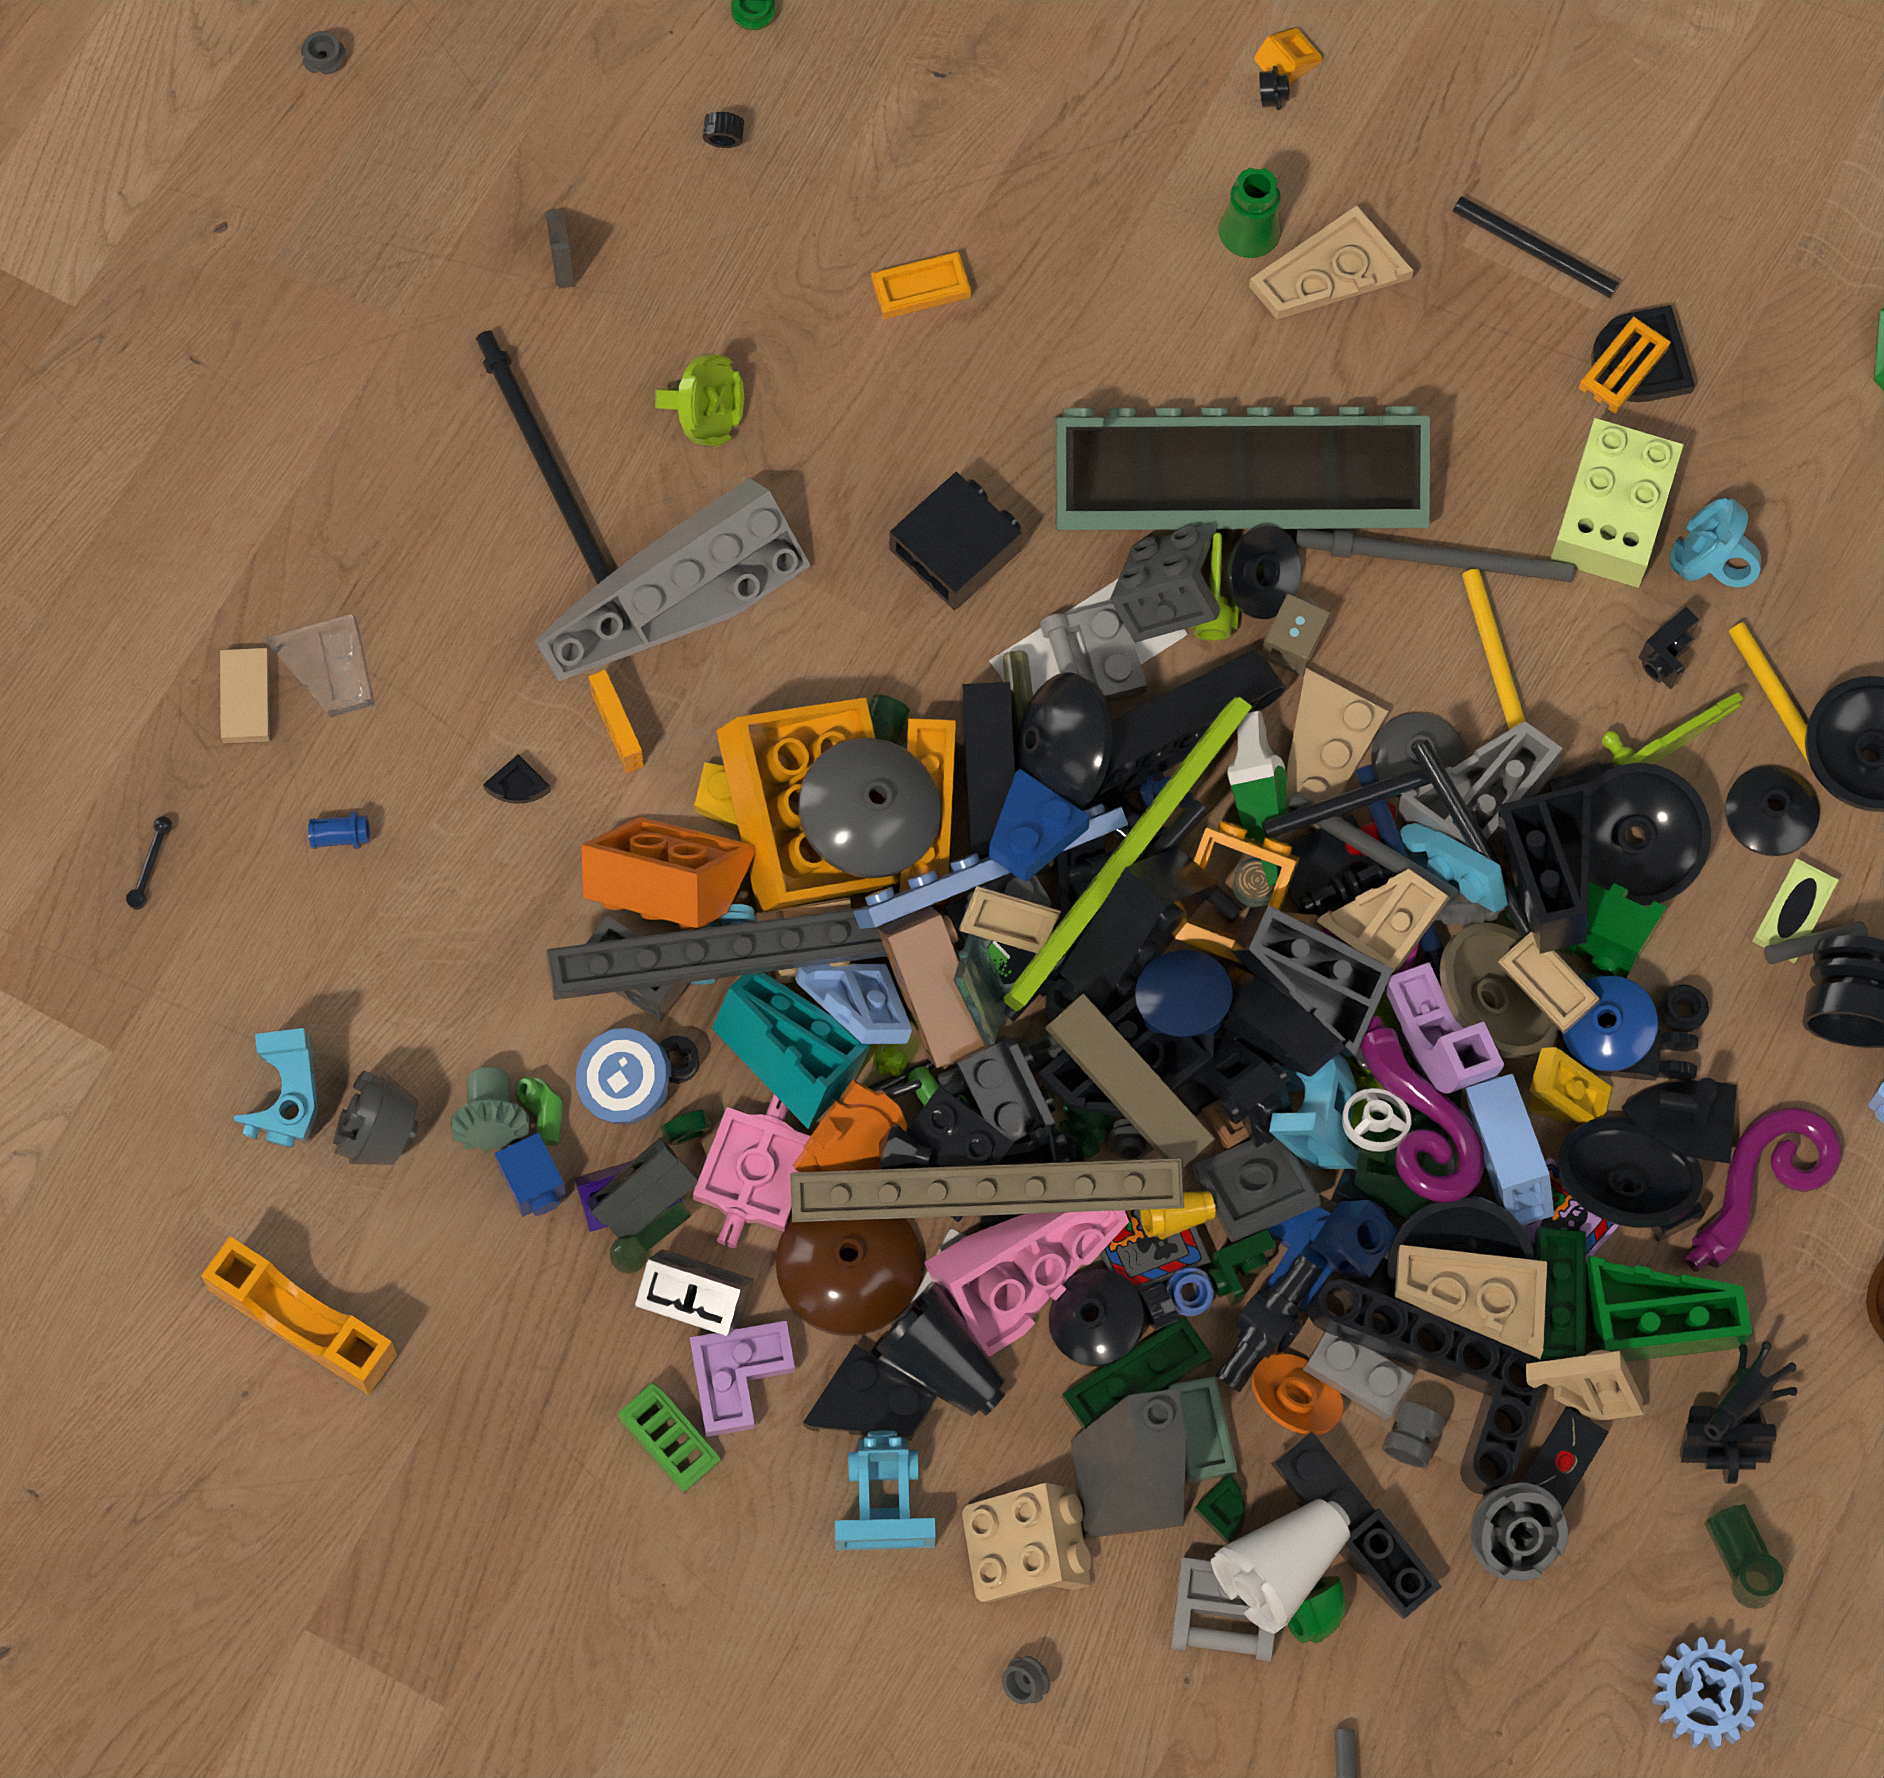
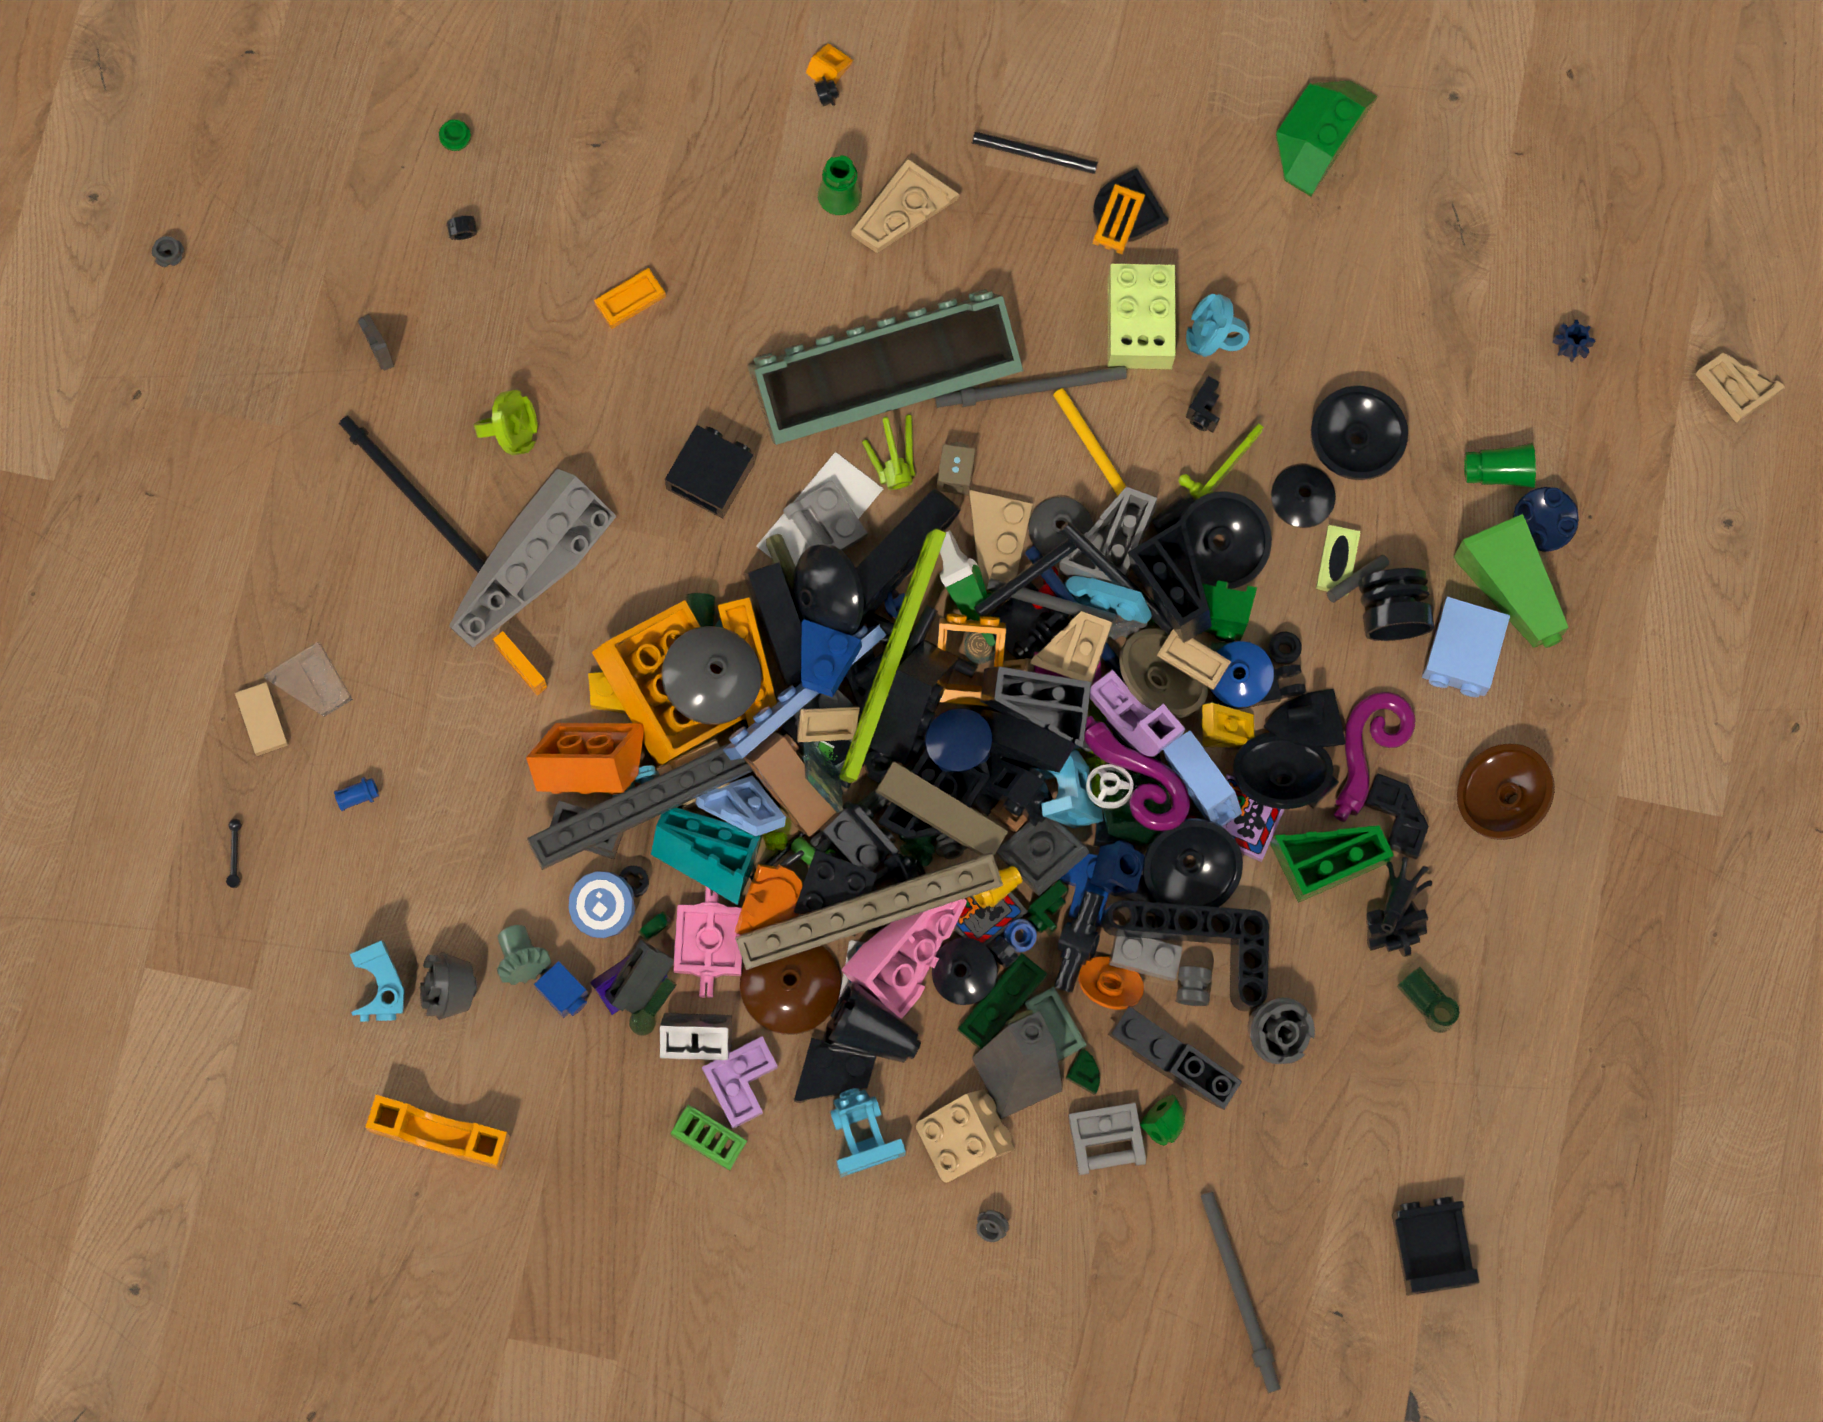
camera: 20 degrees left, 5 degrees up
(517, 783) = (465, 724): black tile -> none
(545, 1105) = (554, 939): bright green arm -> none
(899, 1149) = (803, 900): black rock -> none
(1163, 584) = (857, 461): dark grey bracket -> none
(1263, 571) = (922, 433): black dish -> none
(1282, 1562) = (1136, 1098): white cone -> none
(1478, 1292) = (1209, 881): tan wing -> none
(1565, 1292) = (1262, 868): dark green tile -> none
(1565, 1455) = (1295, 970): black tile -> none
(1592, 1383) = (1302, 919): tan wing -> none
(1716, 1711) = (1441, 1107): light blue gear -> none
(1770, 684) = (1278, 411): yellow bar -> none
(1782, 1266) = (1398, 801): none -> black tile

